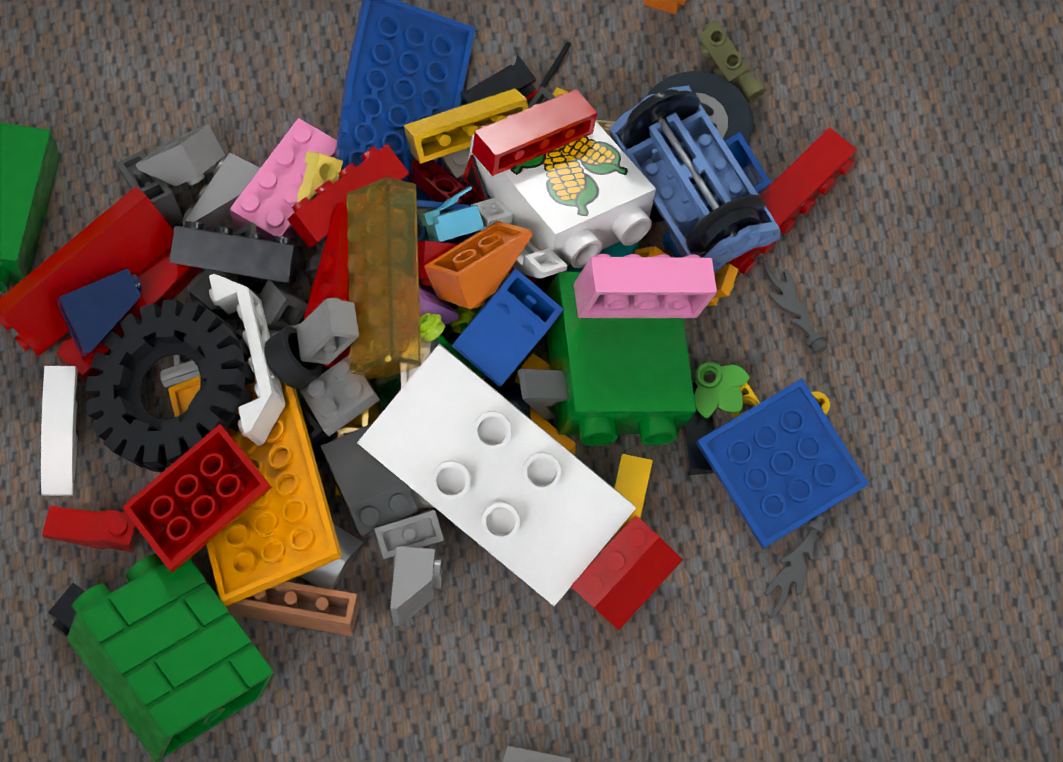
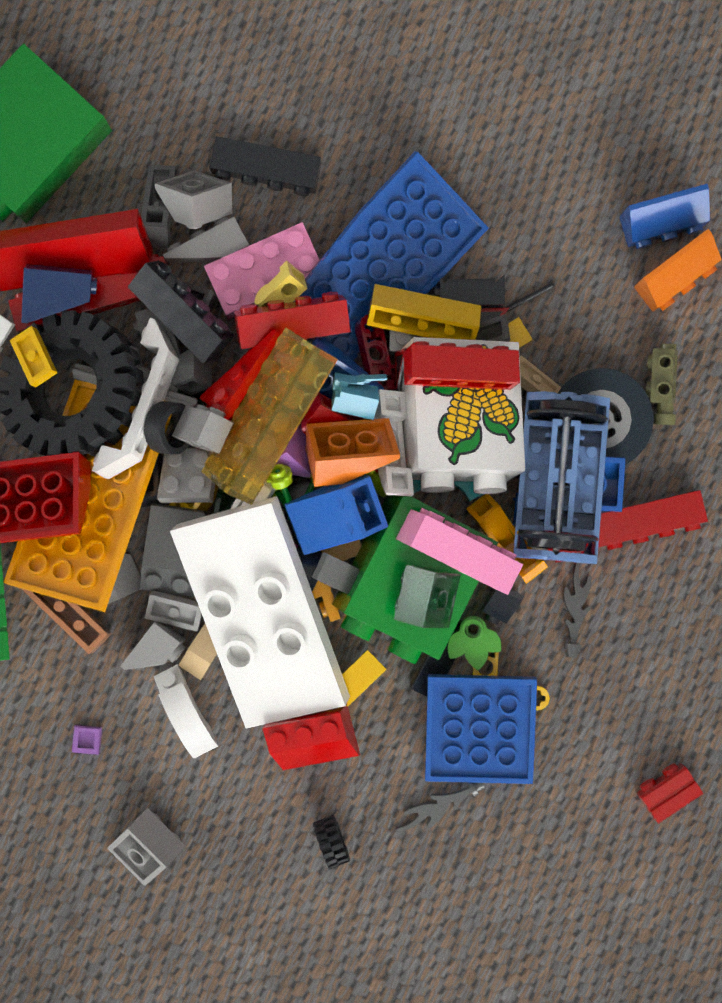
camera: 30 degrees right, 20 degrees up
(117, 374) = (33, 356): none -> yellow plate
(230, 96) = (265, 165): none -> black brick
(401, 725) = (87, 739): none -> medium lavender tile
(461, 562) = (199, 654): none -> tan slope
(485, 628) = (184, 713): none -> white arch
(642, 350) = (426, 597): none -> clear green slope
(713, 658) = (331, 842): none -> black tyre
(719, 334) = (501, 606): none -> black slope
(1002, 412) = (669, 792): none -> red brick

